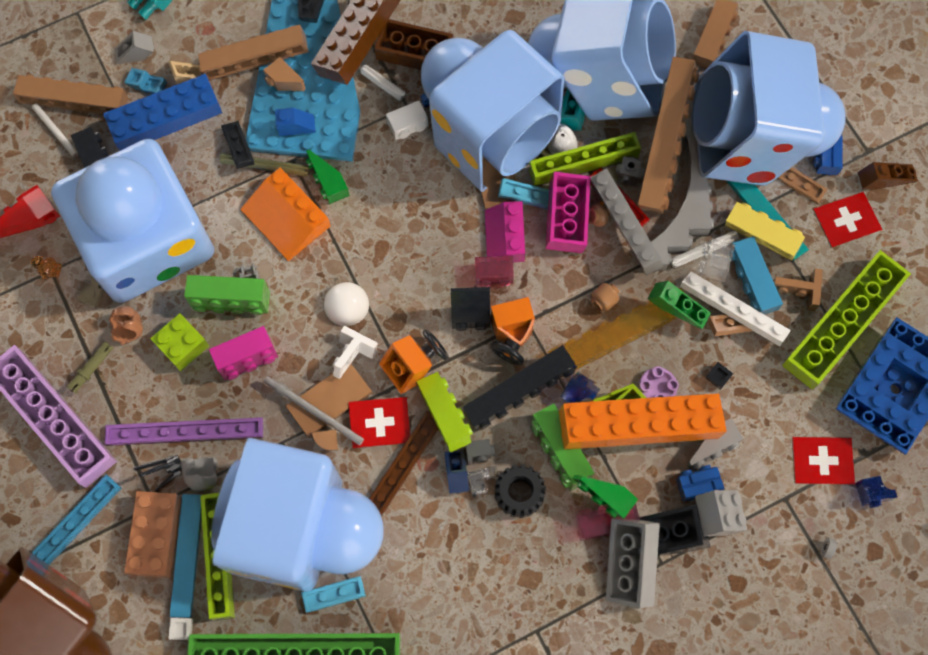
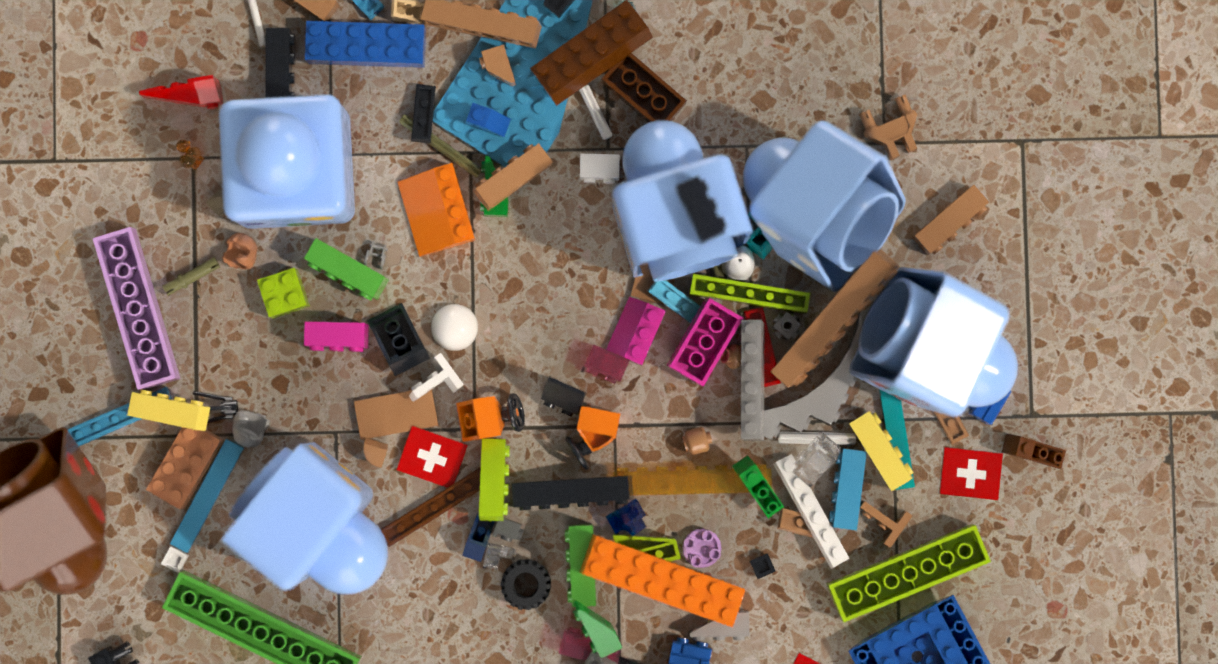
camera: 20 degrees right, 15 degrees up
(116, 487) = (169, 411): none -> light yellow brick
(183, 431) = (252, 379): medium lavender tile -> none
(218, 580) = (244, 473): lime brick -> none
(283, 390) = (356, 385): light grey bar -> none
(302, 334) = (398, 339): none -> black slope
(333, 594) = (314, 592): medium azure tile -> none
(337, 153) = (512, 177): none -> medium nougat brick
(512, 72) = (701, 209): none -> black brick

